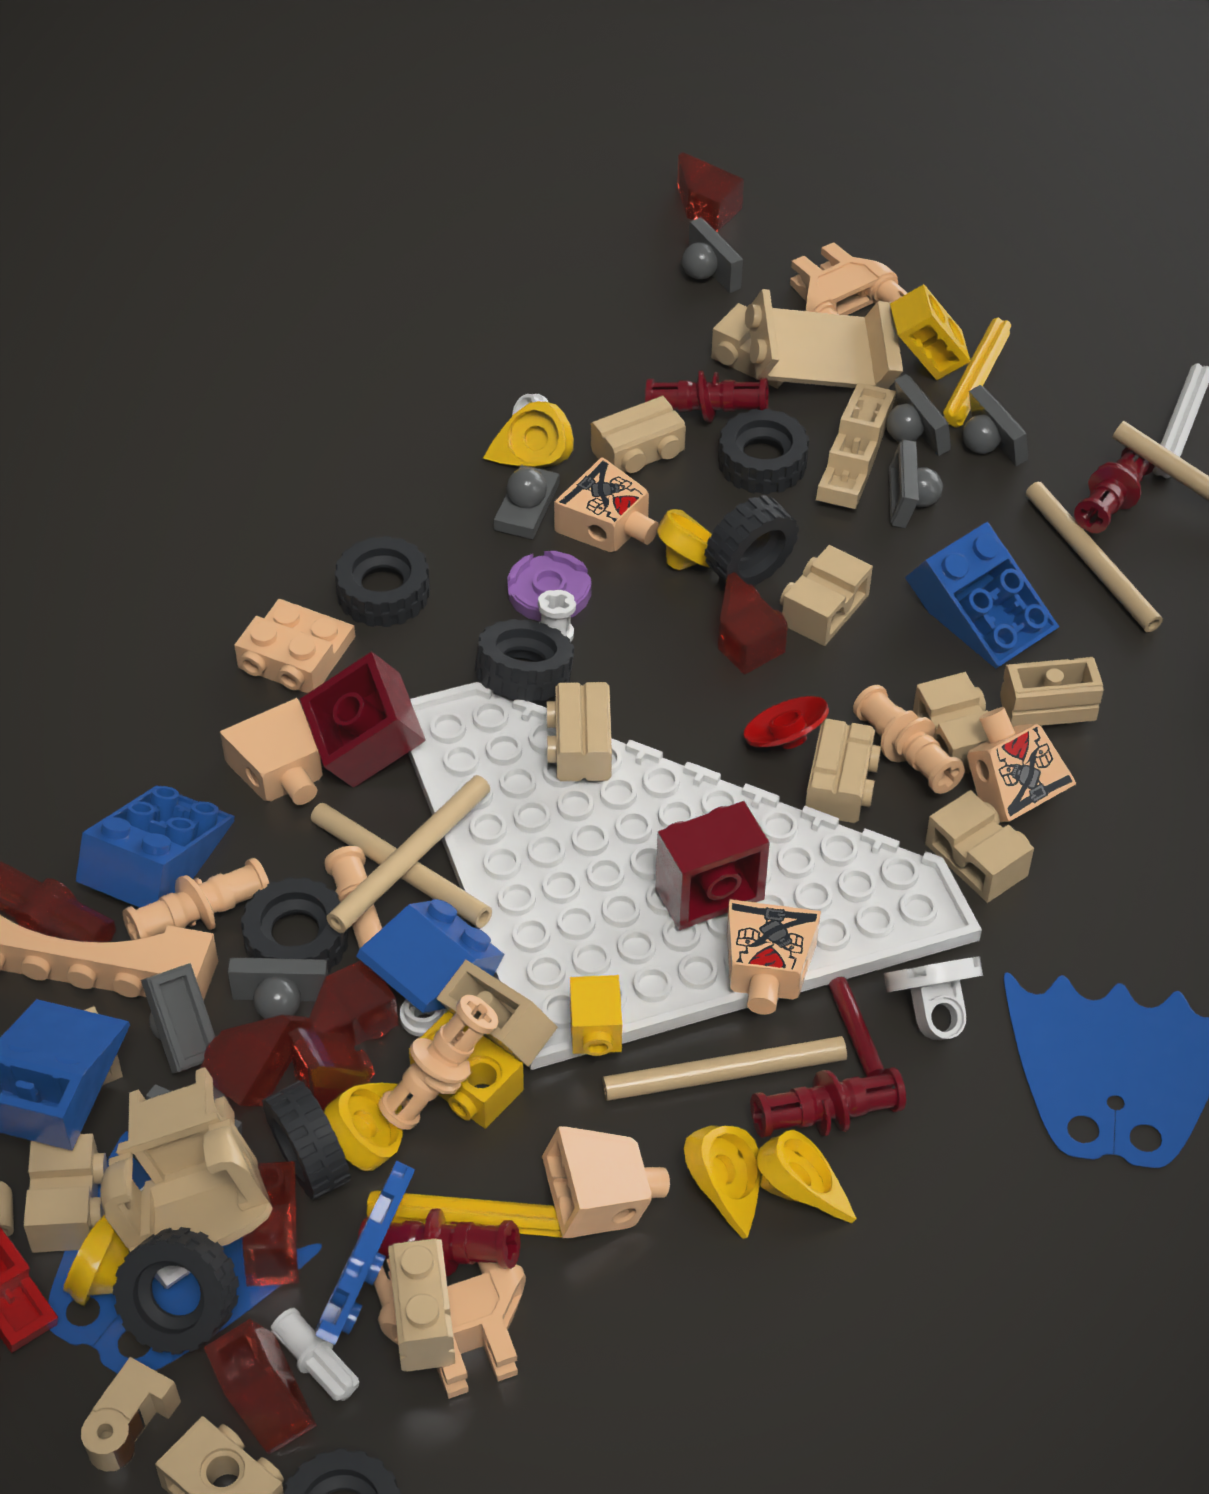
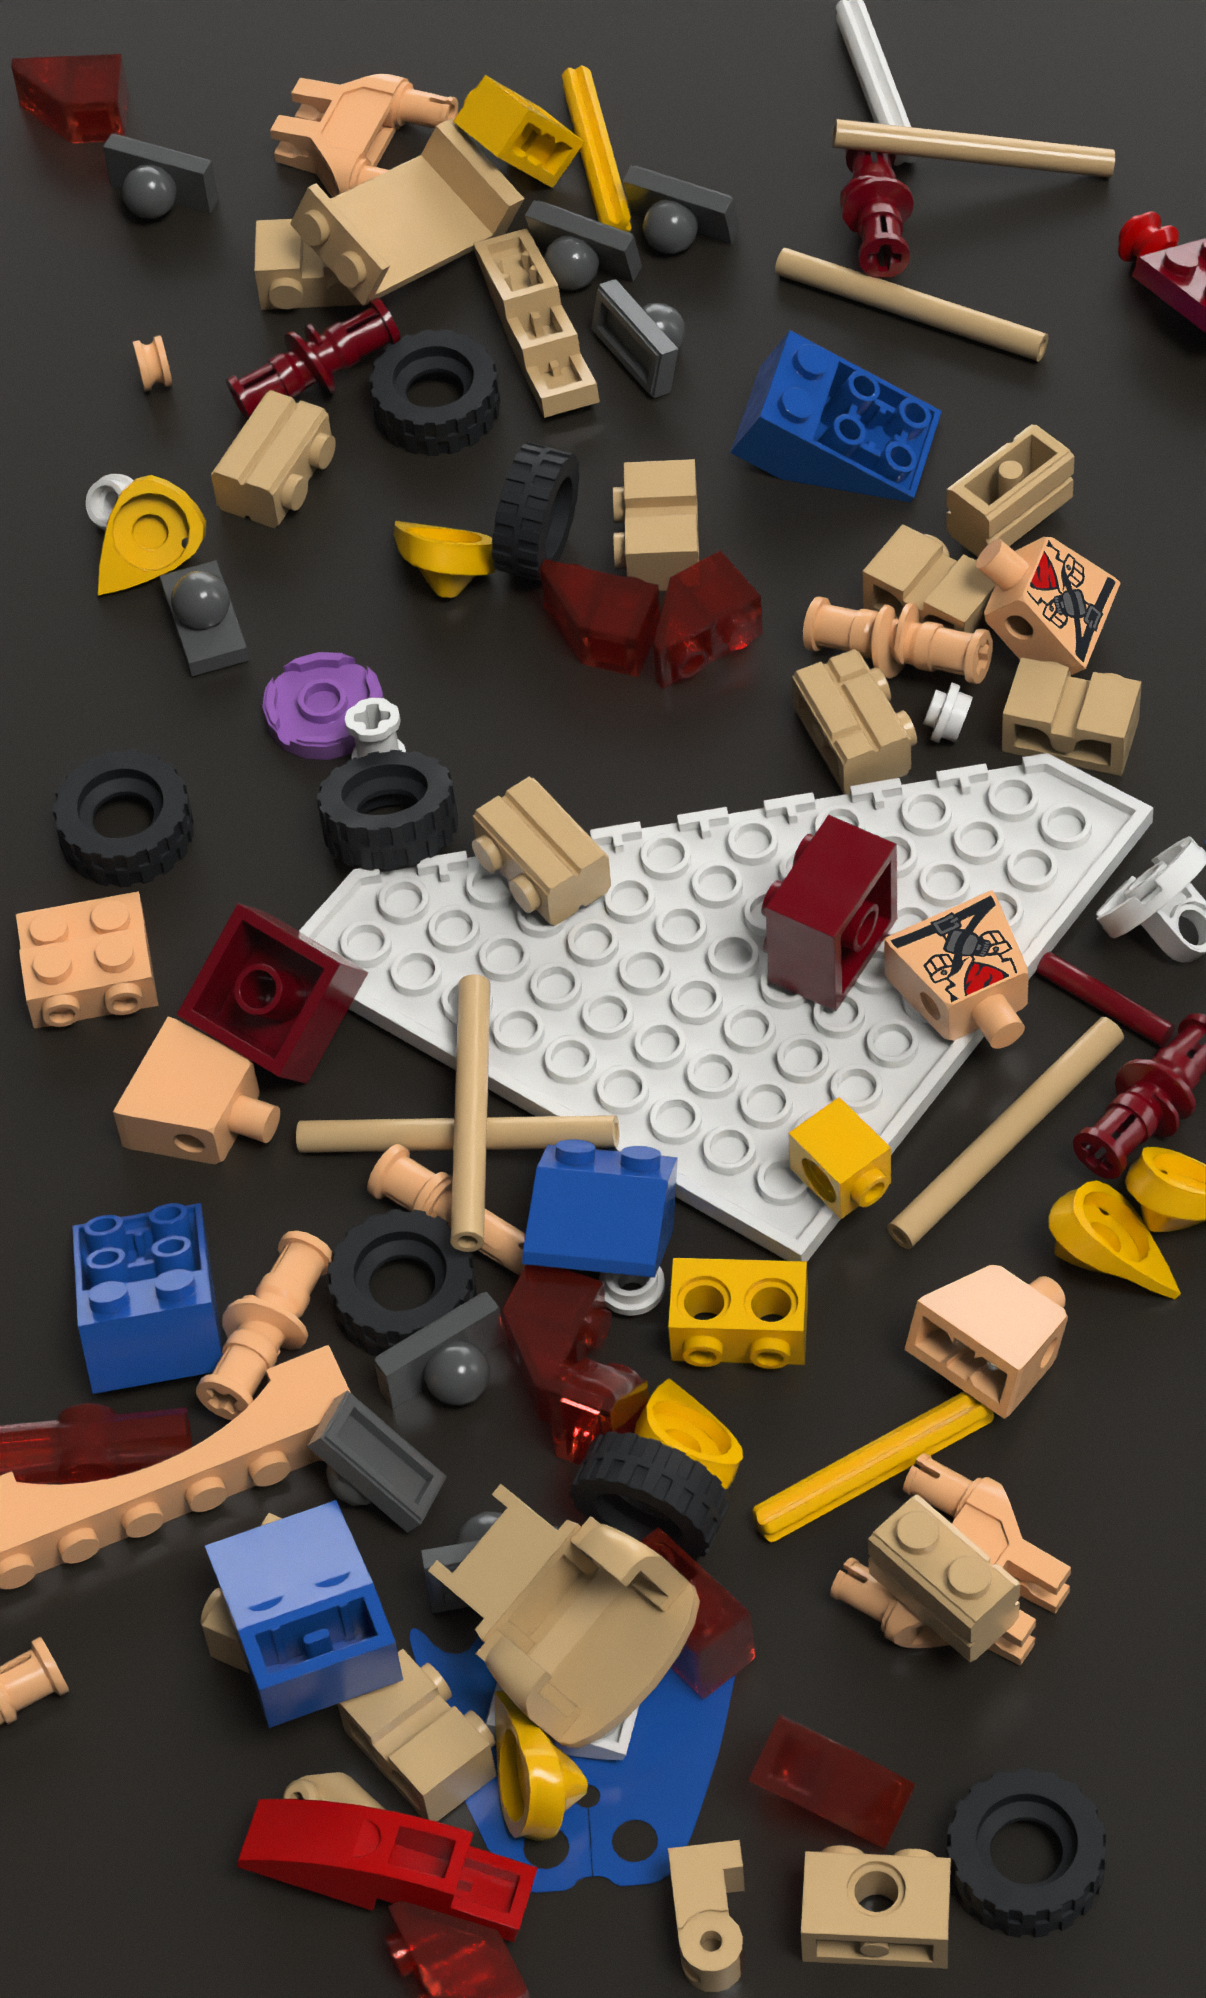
camera: 30 degrees left, 5 degrees up
(147, 1319) = (697, 1784): black tyre -> none
(252, 1057) = (499, 1448): clear red slope -> none
(314, 1355) = (850, 1716): white axle -> none
(364, 1260) = (838, 1614): blue wing -> none
(439, 1063) = (732, 1318): light nougat piece -> none
(461, 1241) = (853, 1522): dark red piece -> none
(521, 1025) = (753, 1217): tan brick -> none
(605, 509) = (315, 571): light nougat torso -> none
(619, 351) = (152, 363): none -> light nougat bush
(786, 722) = (746, 702): red dish -> none
(801, 660) = (704, 617): none -> clear red slope
(904, 800) = (947, 713): none -> white plate

